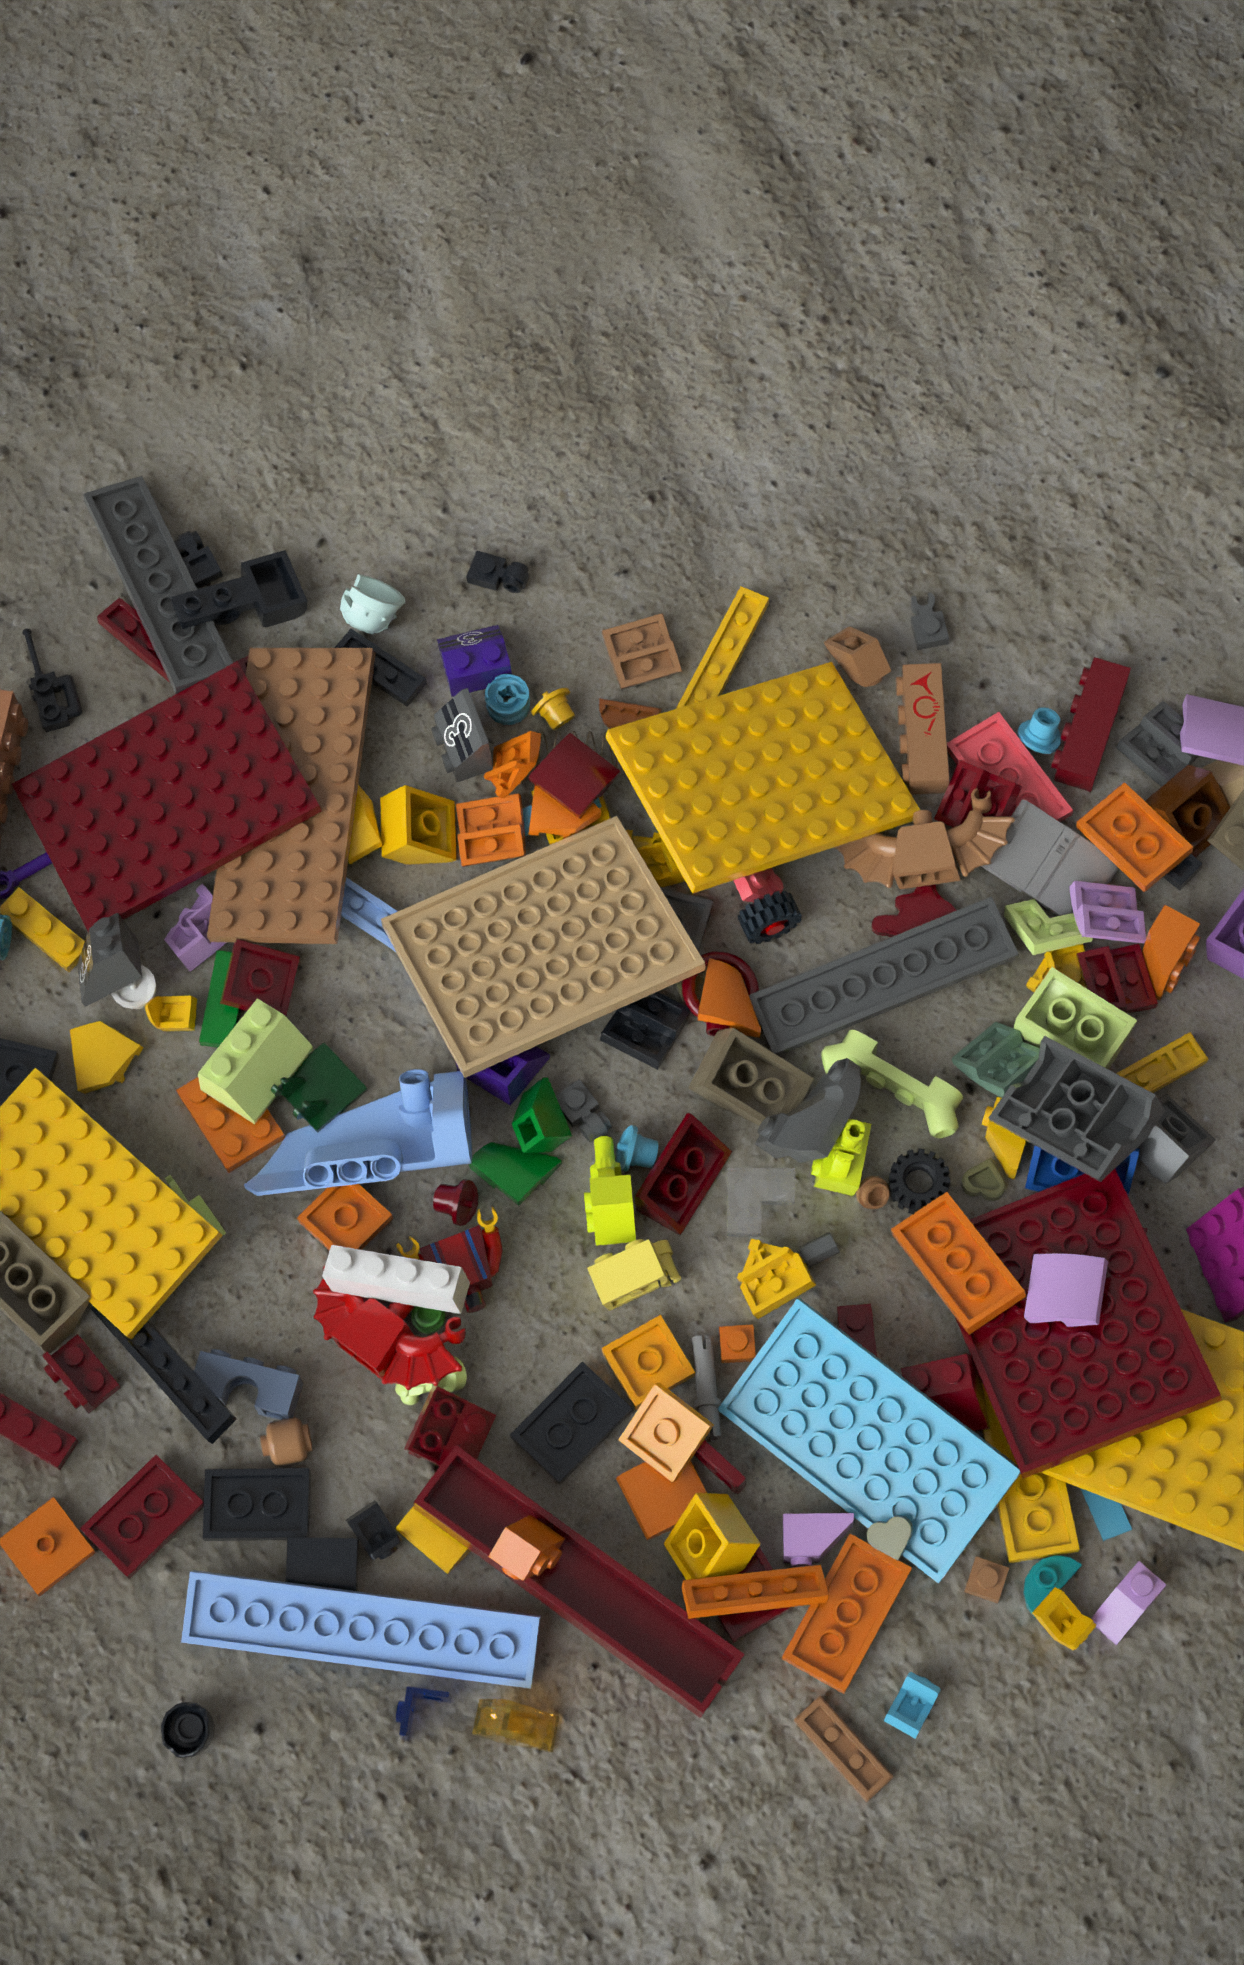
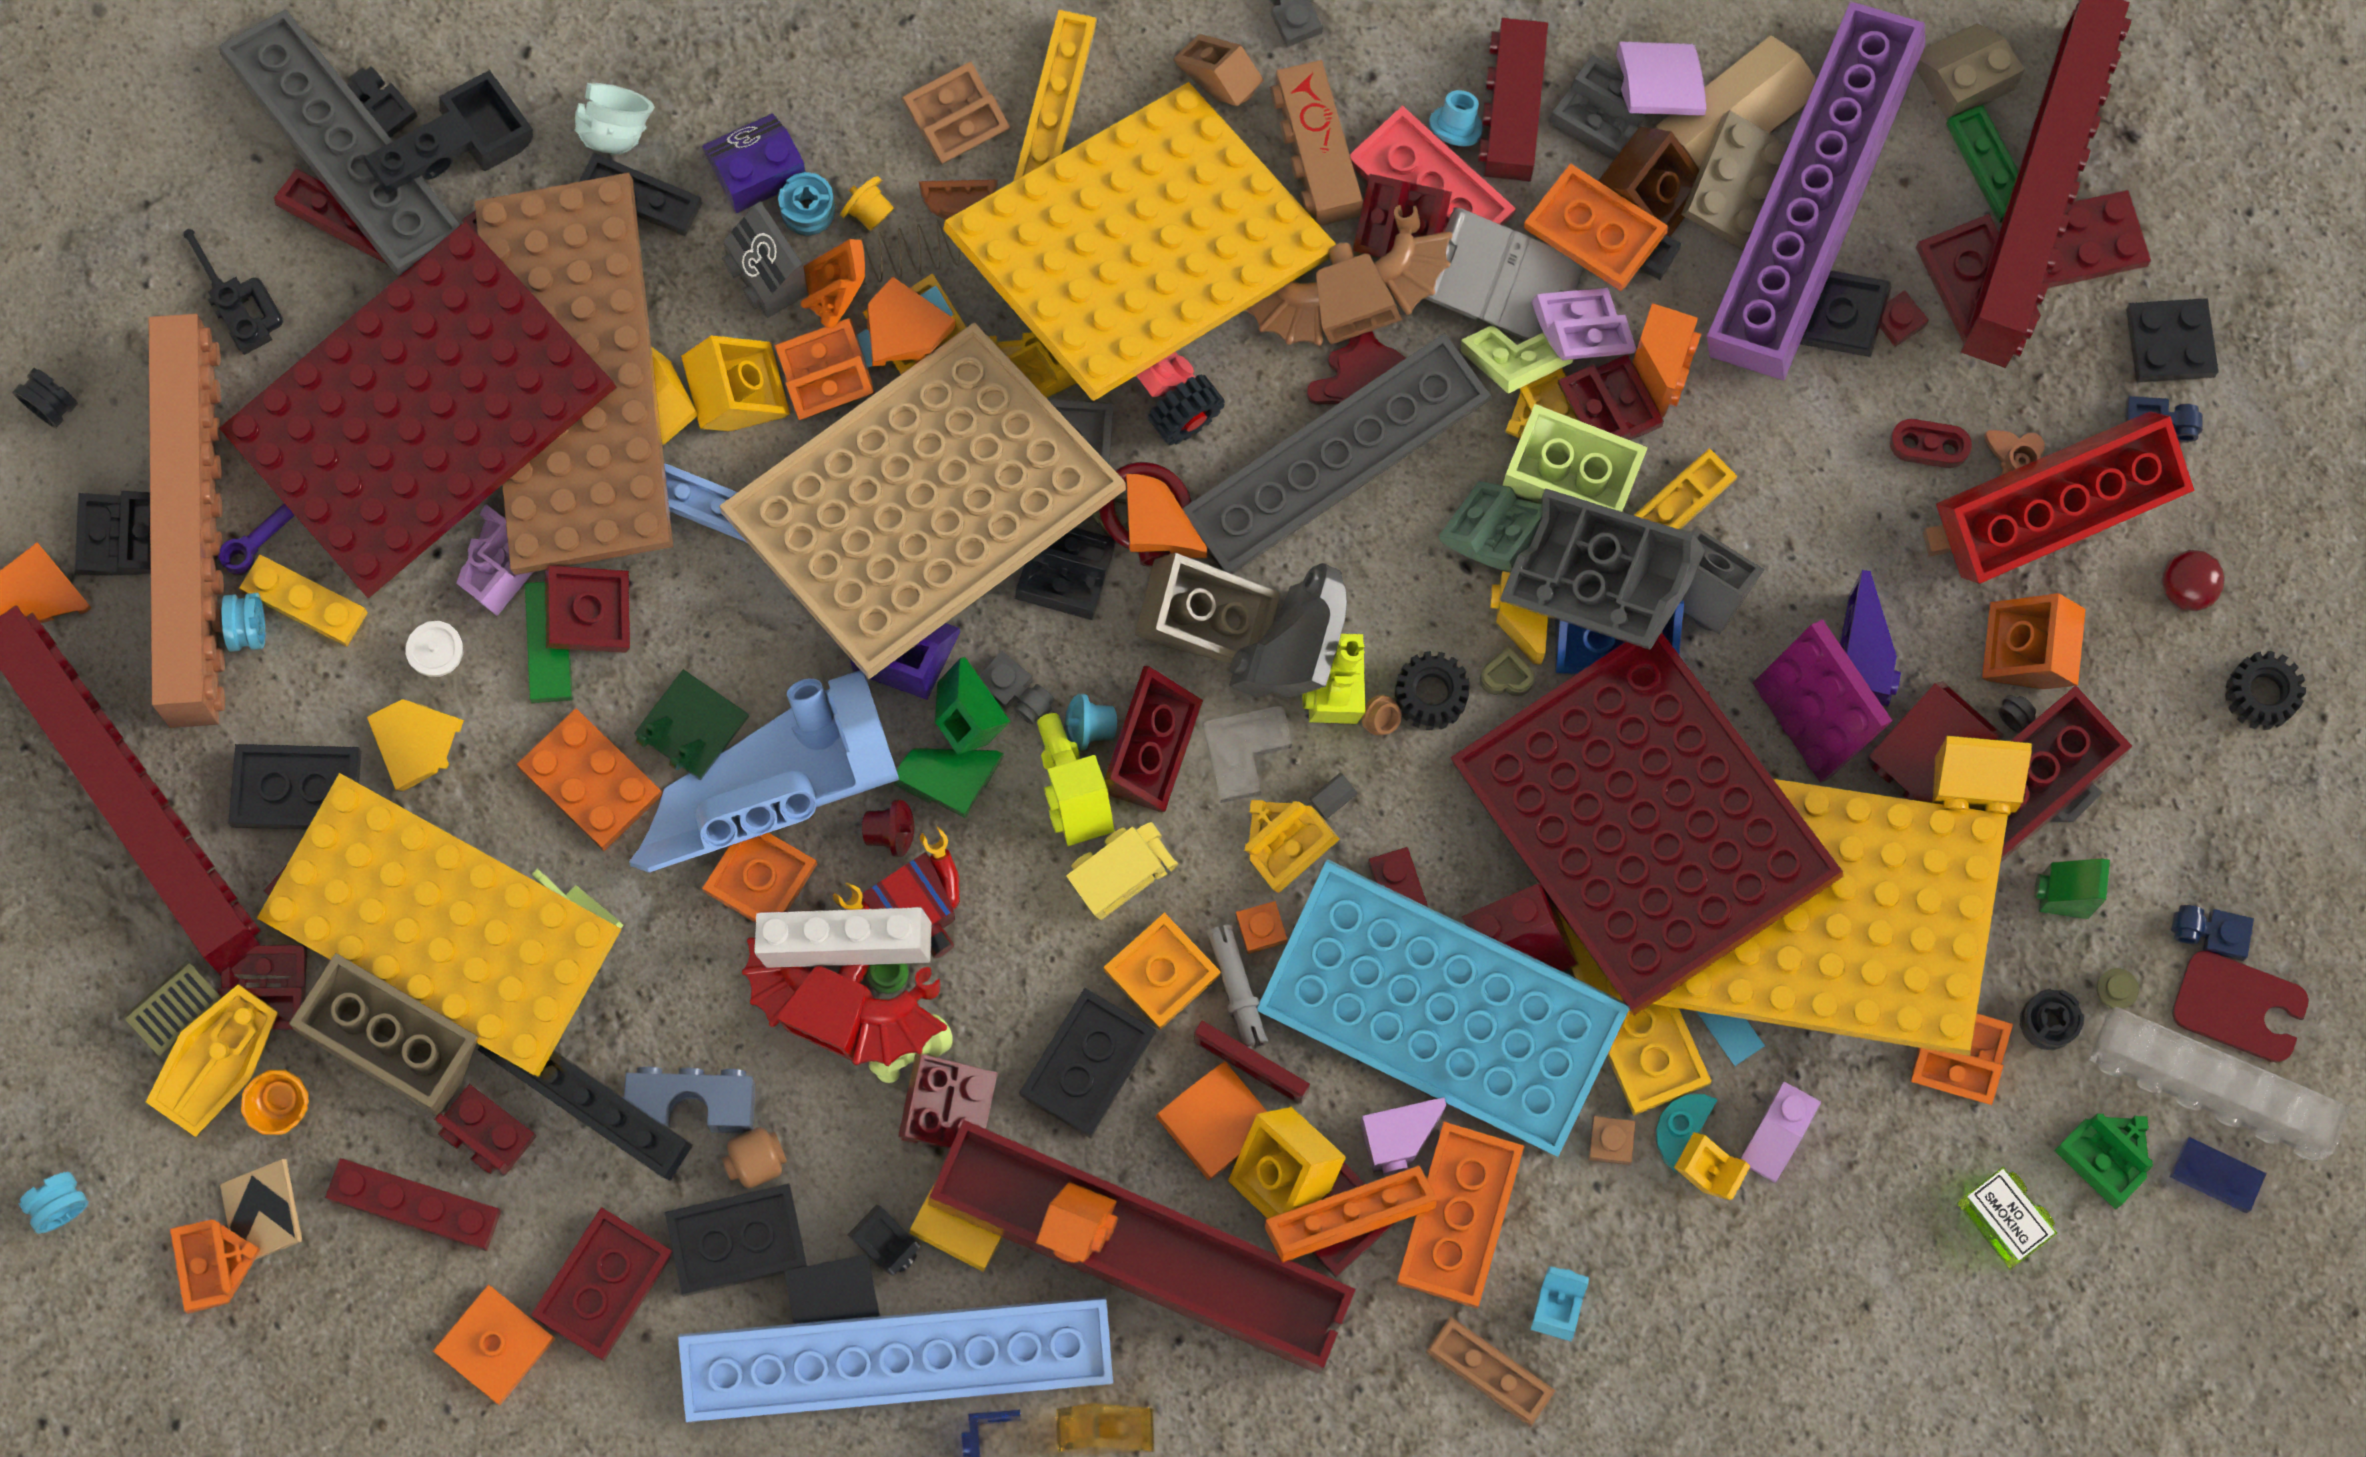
camera: 20 degrees left, 5 degrees up
(108, 959) = (395, 623): dark grey slope -> none
(172, 1012) = (489, 671): yellow plate -> none
(252, 1060) = (606, 710): yellowish green slope -> none
(490, 570) = (747, 47): black plate -> none
(574, 775) = (913, 283): dark red slope -> none
(666, 1432) = (1205, 1050): light orange plate -> none
(891, 1536) = (1492, 1115): tile -> none
(937, 1100) = (1432, 590): yellowish green plate -> none
(958, 1263) = (1501, 778): orange plate -> none
(1066, 1289) = (1635, 783): lavender slope -> none

